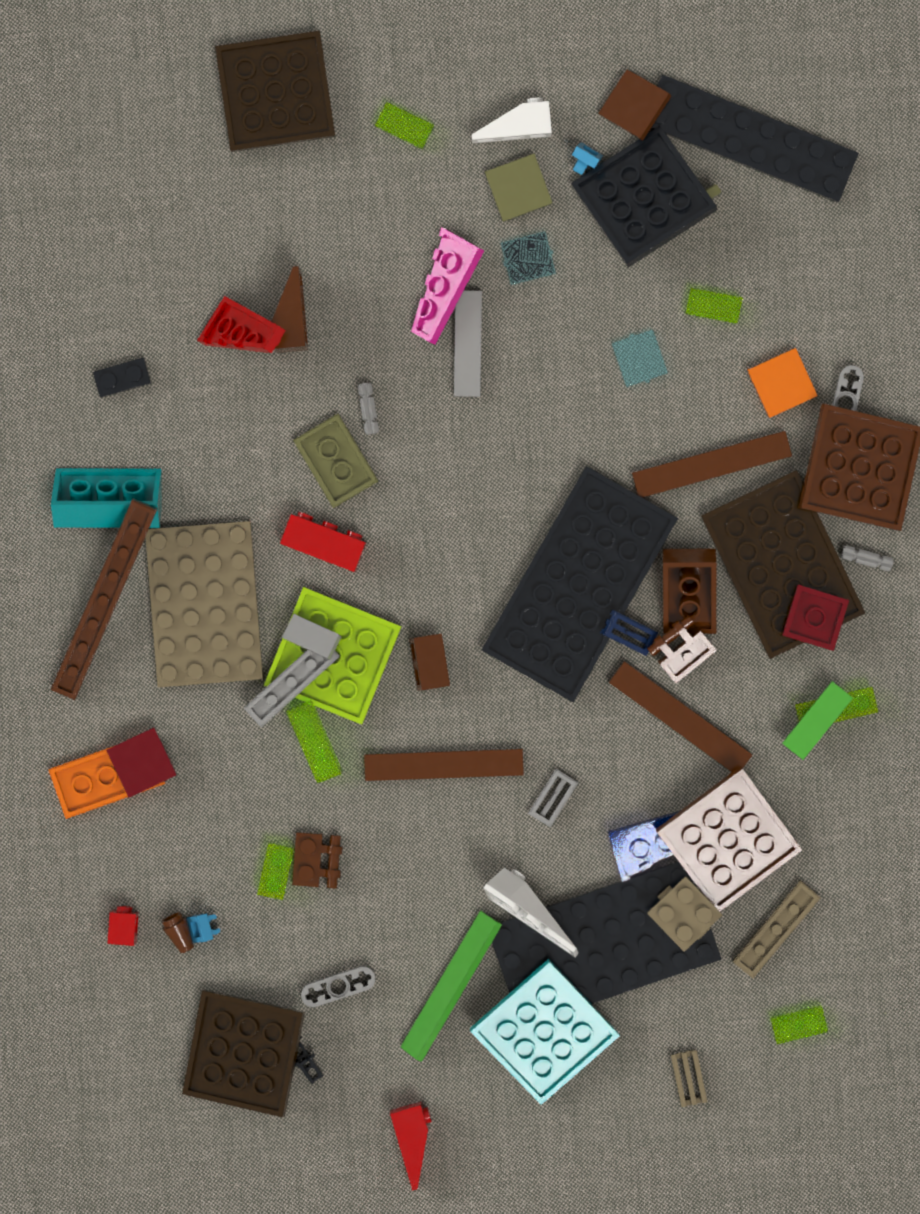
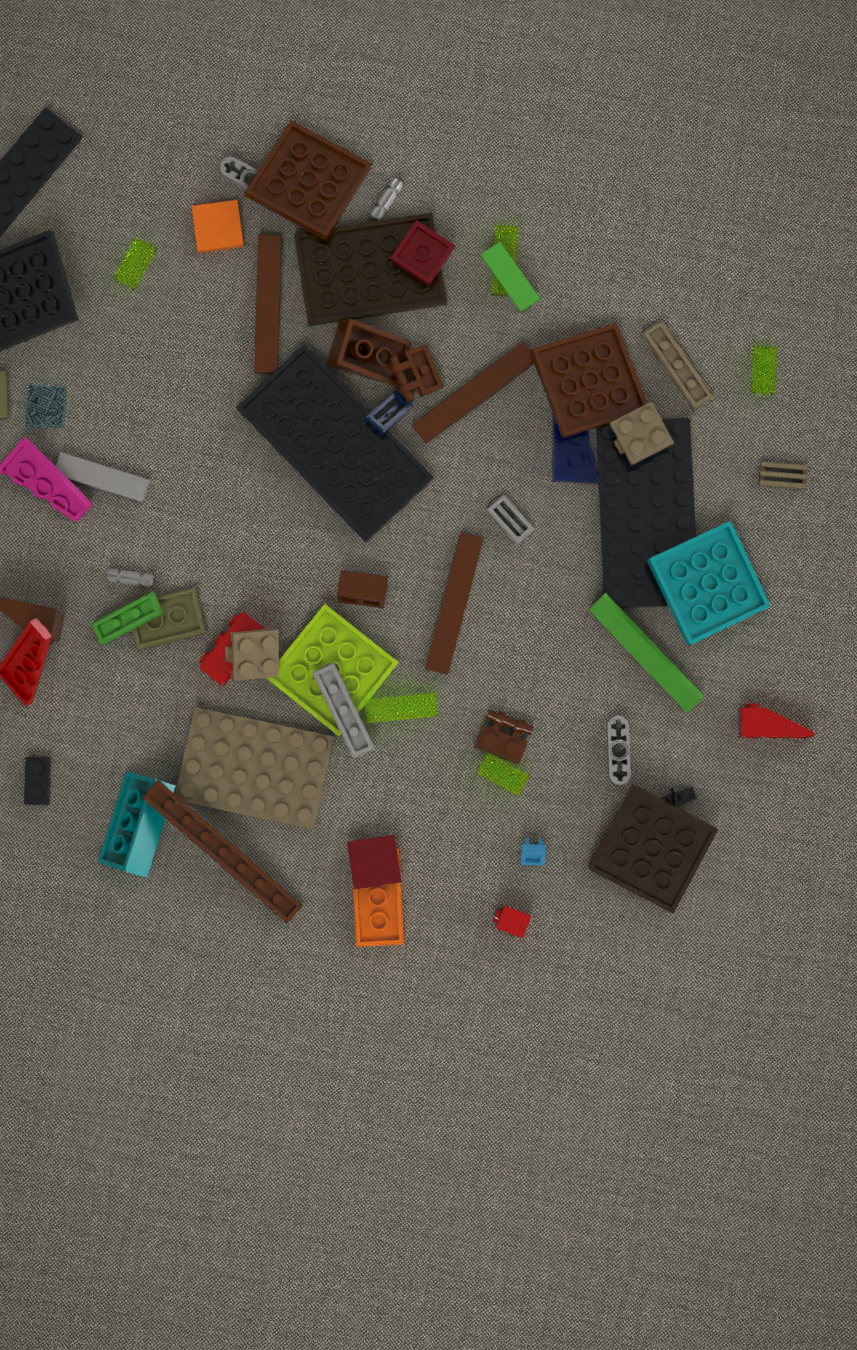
camera: 70 degrees left, 5 degrees down
(178, 932) = (531, 874): reddish brown cone -> none
(311, 636) = (309, 680): light grey tile -> none
(321, 569) = (254, 654): none -> dark tan piece
(322, 420) = (127, 618): none -> bright green tile
(516, 897) = (589, 571): white wedge -> none
(639, 358) = (159, 338): clear light blue piece -> none

